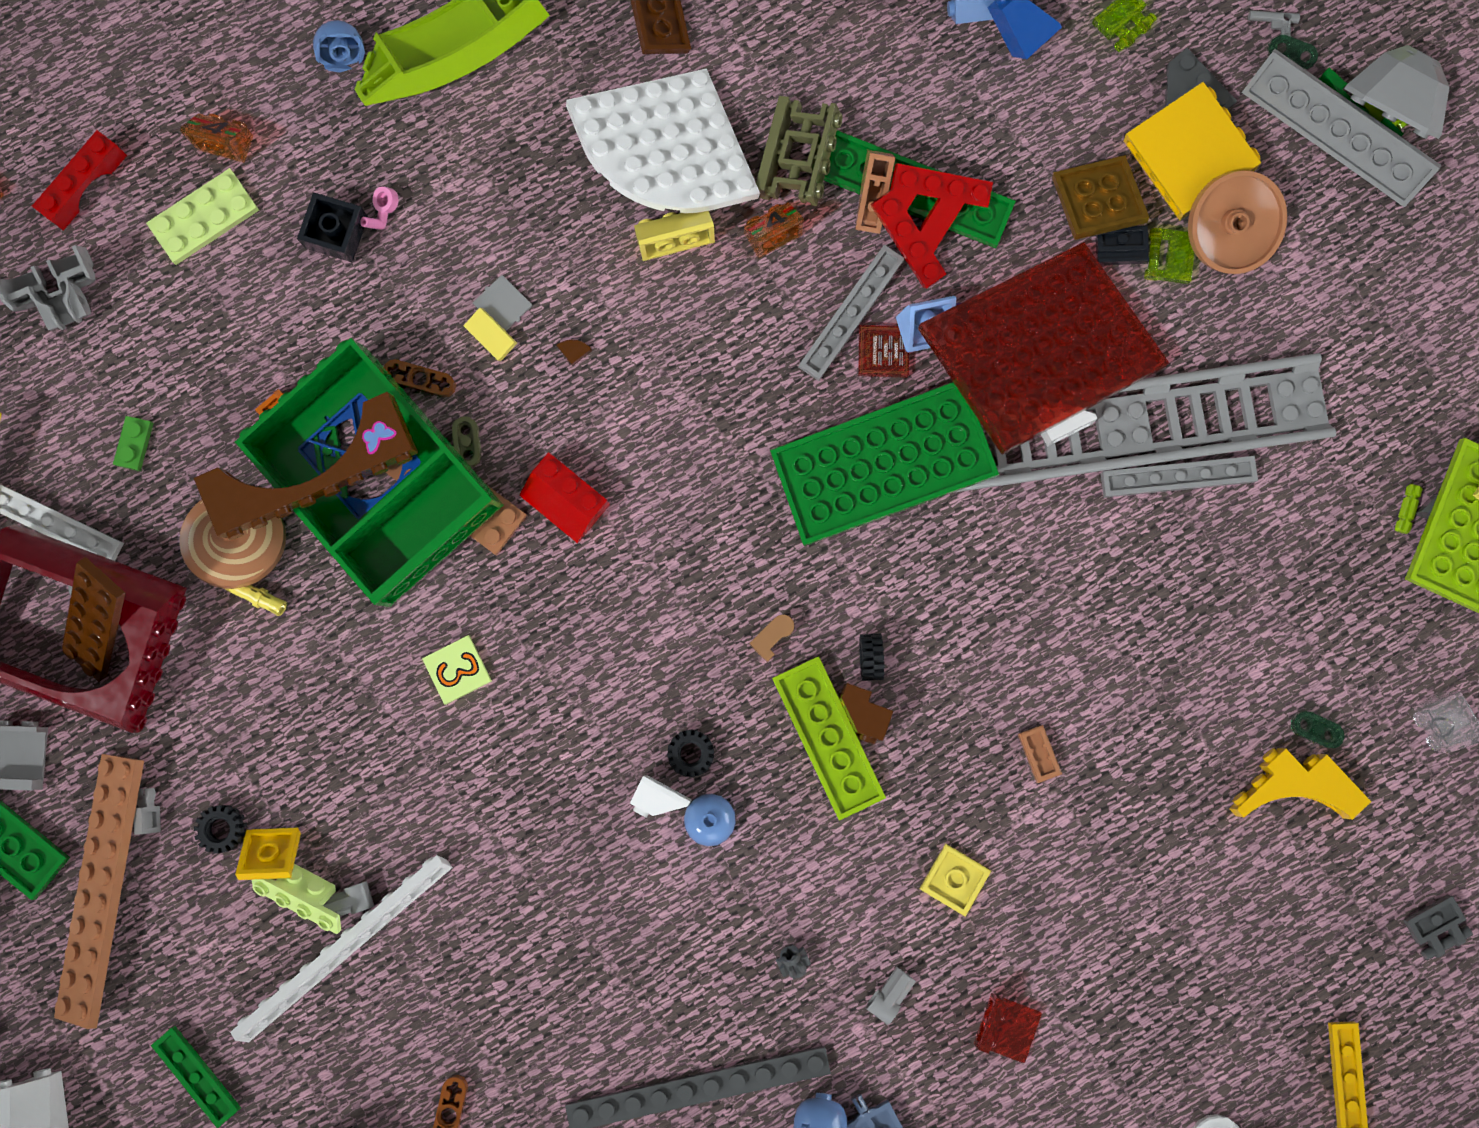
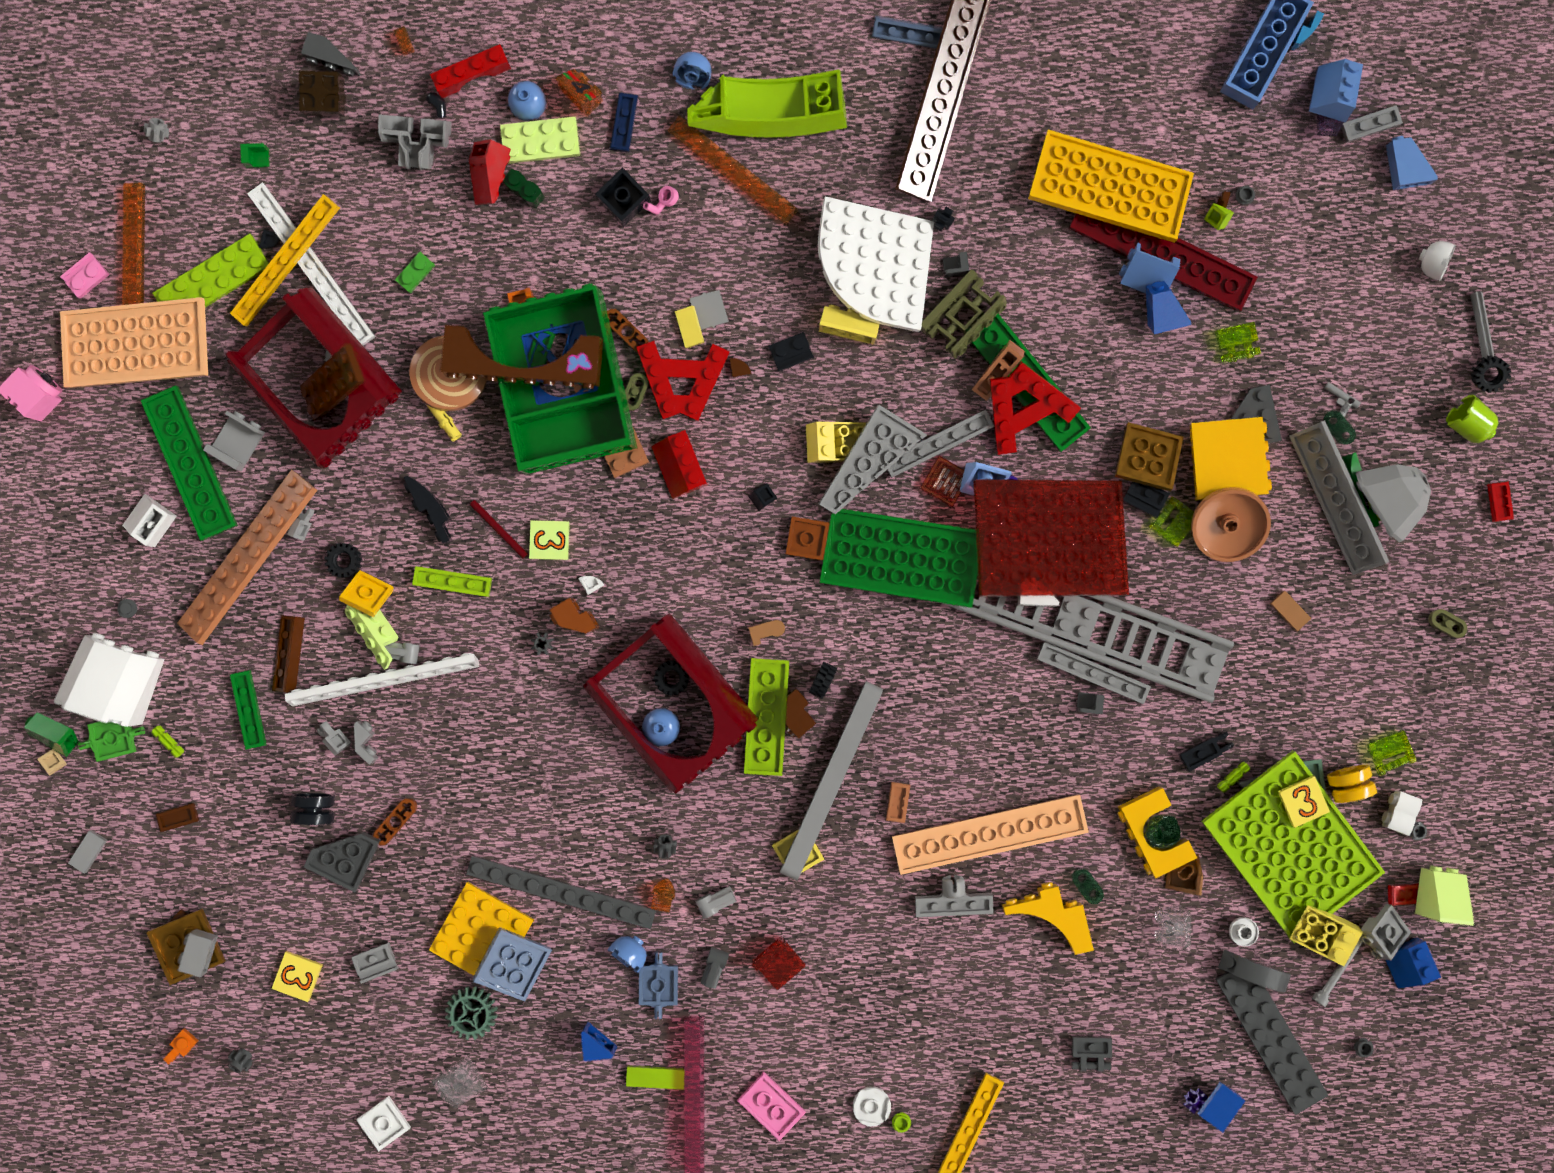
camera: 30 degrees right, 5 degrees up
(59, 235) = (438, 102): none -> black arm
(155, 278) = (487, 170): none -> red slope
(163, 180) = (526, 100): none -> medium blue cylinder
(211, 279) = (522, 188): none -> dark green brick
(211, 980) = (288, 654): none -> reddish brown slope
(284, 704) = (426, 501): none -> black slope
(290, 146) = (624, 122): none -> dark blue tile
(321, 1056) = (334, 740): none -> light grey plate
(352, 1028) = (362, 734): none -> light grey slope
(365, 782) = (452, 581): none -> lime plate
(389, 690) = (503, 534): none -> dark red bar
(444, 133) = (733, 170): none -> clear orange plate
(482, 401) = (659, 371): none -> red plate
(506, 797) = (537, 641): none -> dark grey gear
(528, 745) = (571, 617): none -> dark orange piece
(534, 694) = (590, 583): none -> white tile
(623, 300) = (791, 352): none -> black plate
(656, 798) = (634, 695): white slope -> none
(681, 483) = (762, 496): none -> black slope
(715, 59) = (943, 219): none -> black gear
(732, 373) = (831, 440): none -> light yellow slope
(760, 103) = (956, 265): none -> dark grey panel
(760, 502) = (807, 538): none -> dark orange plate
(773, 229) = (917, 358): clear orange slope -> none
(783, 358) = (875, 450): none -> light grey wing
(783, 755) = (729, 711): none -> dark red panel
(823, 1022) = (663, 895): none -> clear orange tile
(932, 1071) = (715, 964): none -> dark grey piece
(947, 773) = (831, 780): none -> light grey beam
(1168, 732) = (990, 834): none -> light nougat plate
(1172, 835) = (953, 901): none -> light grey plate
(1196, 513) = (1090, 703): none -> dark grey panel
(1324, 615) = (1135, 815): none -> yellow arch
(1359, 285) = (1290, 611): none -> medium nougat tile
(1359, 498) = (1204, 752): none -> black hinge
(1368, 615) = (1163, 831): none -> clear green hair
(1425, 654) = (1186, 878): none -> medium nougat slope

